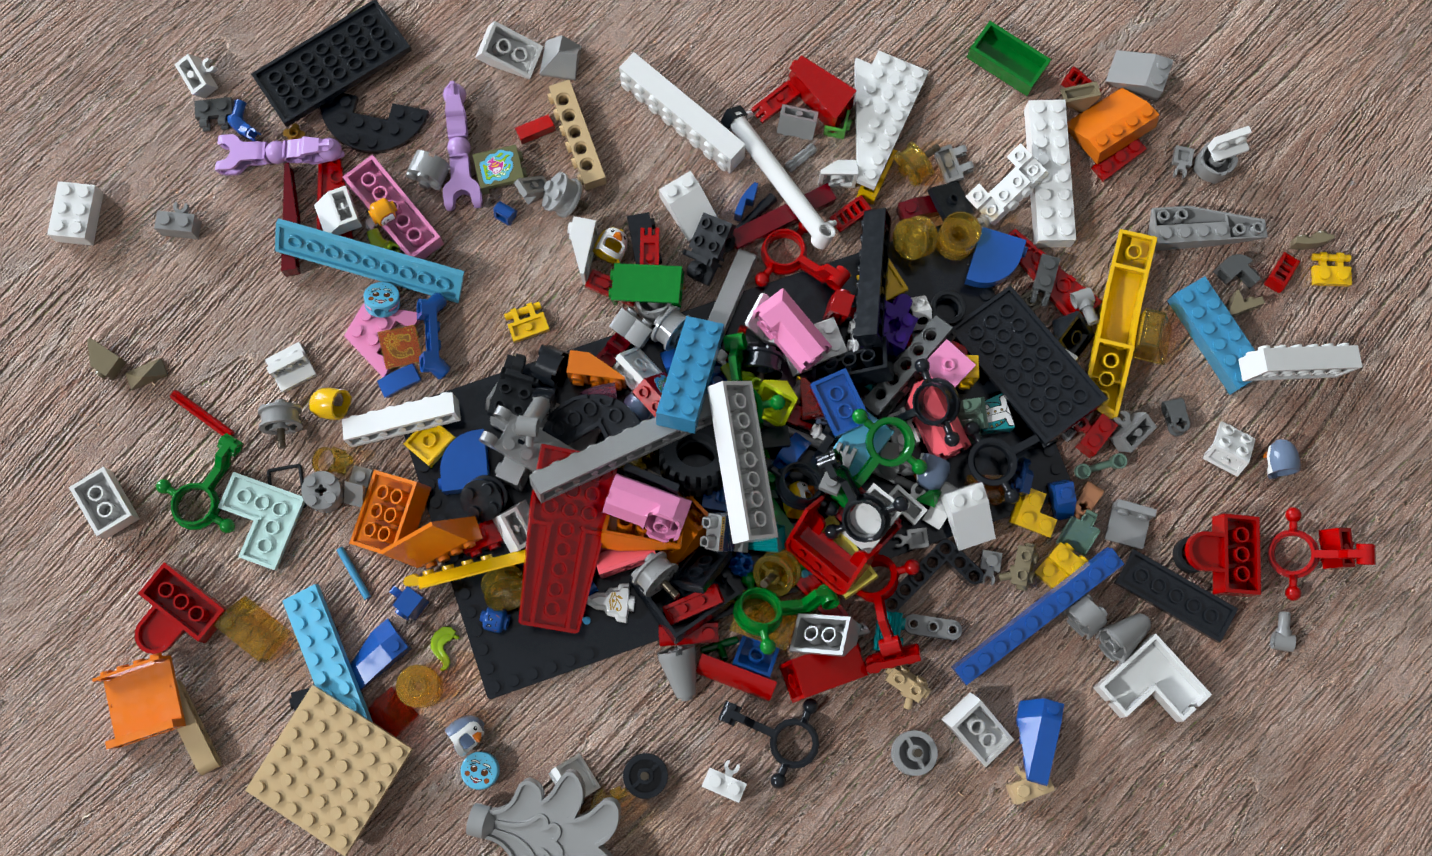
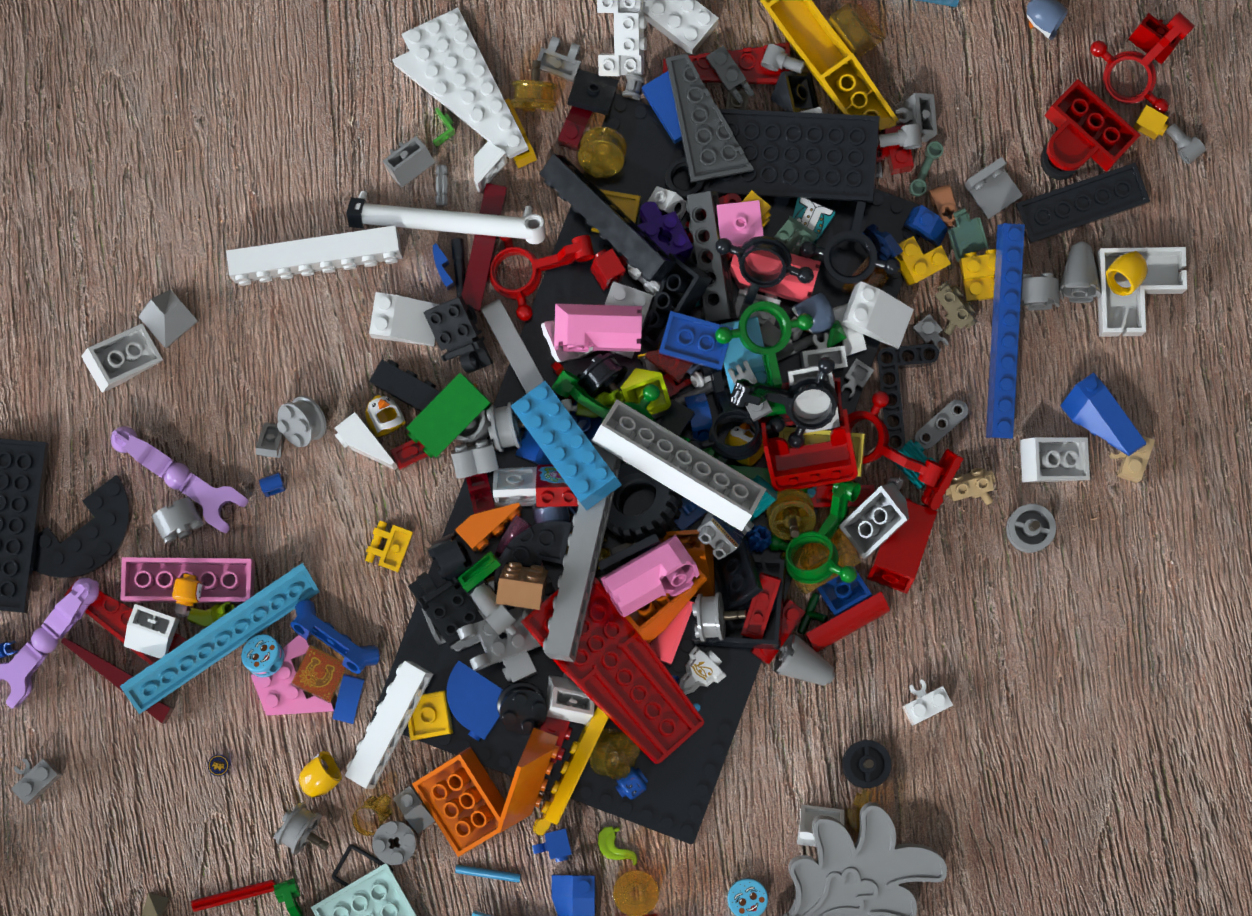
camera: 45 degrees left, 5 degrees up
(284, 333) = (218, 765): none -> tile
(290, 367) = (255, 784): white bracket -> none
(294, 129) = (40, 615): pearl gold plate -> none
(465, 733) = (707, 885): piece -> none
(499, 167) = (227, 455): panel -> none
(535, 129) = (214, 394): red slope -> none
(555, 390) = (479, 571): none -> green tile
(564, 92) = (205, 339): tan brick -> none
(565, 424) = (522, 586): none -> medium nougat brick
(649, 247) = (416, 385): red hinge -> none
(731, 713) = (875, 650): black piece -> none
(773, 102) = (371, 162): red hinge -> none
(822, 91) = (399, 117): red slope -> none
(846, 209) = (534, 169): red slope -> none
(963, 228) = (631, 103): clear yellow wheel -> none
(989, 294) = (706, 136): none -> dark grey wing
(1111, 432) = (908, 137): none -> light grey pin
(1163, 667) = (1133, 267): none -> yellow piece
(1175, 413) = (935, 67): dark grey piece -> none
(1230, 449) = (1002, 48): white bracket -> none
(1275, 596) = (1151, 123): none -> yellow brick

